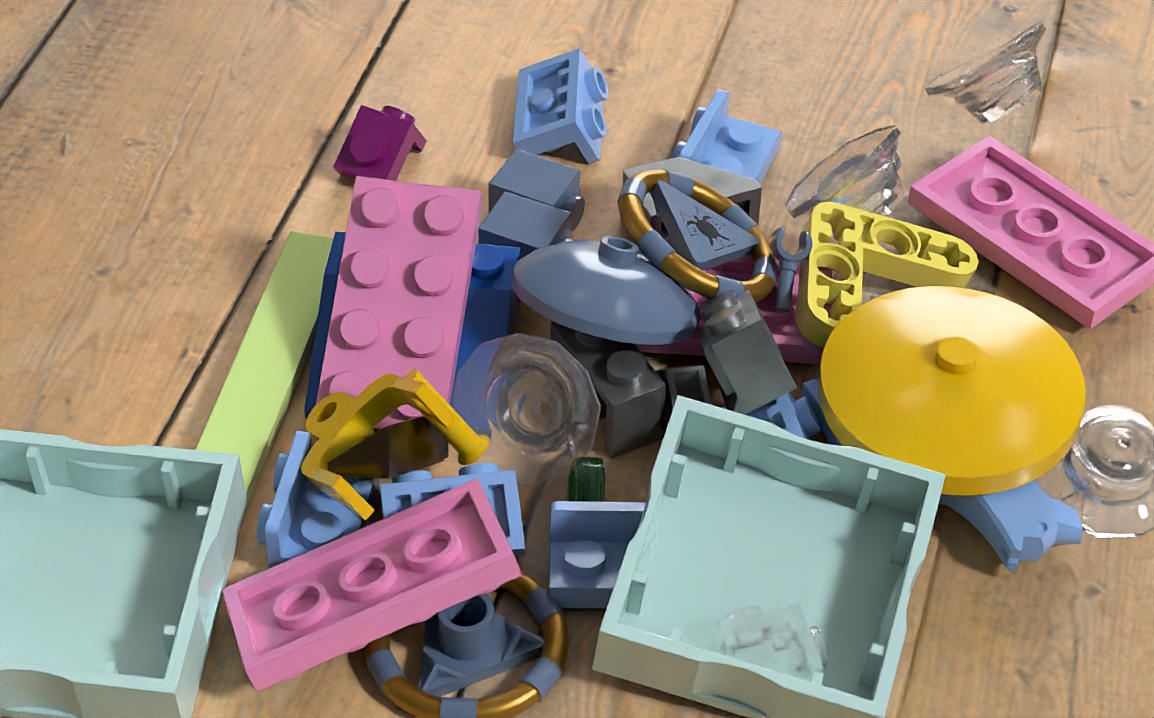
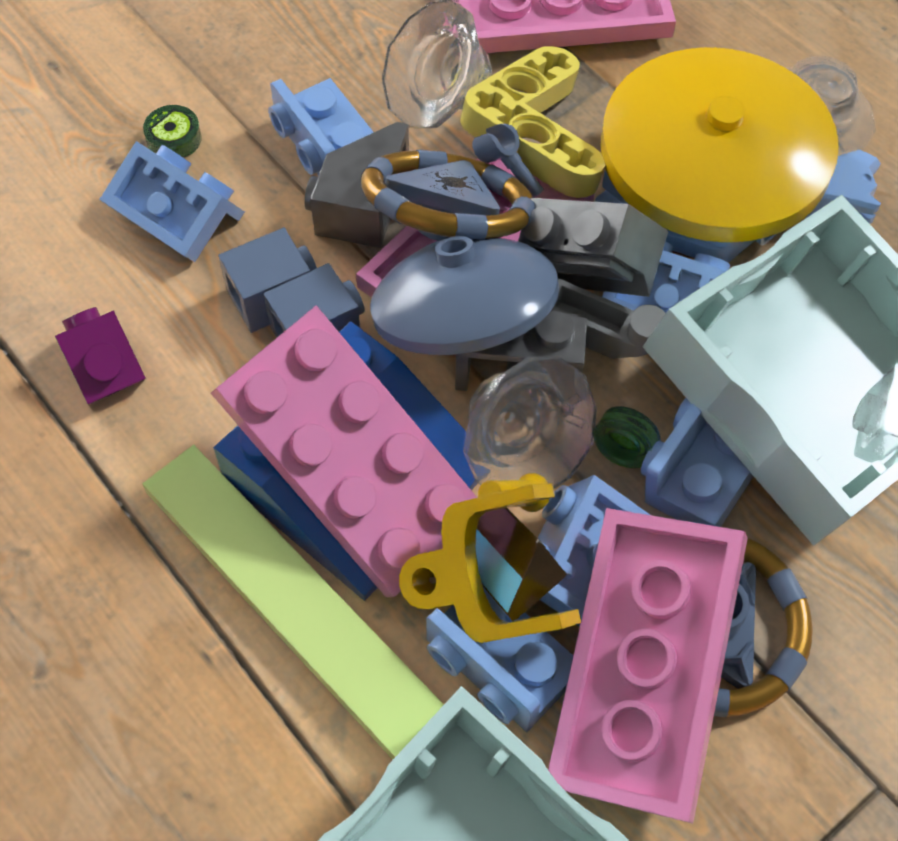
camera: 55 degrees left, 15 degrees up
(632, 76) = (174, 128): none -> tile

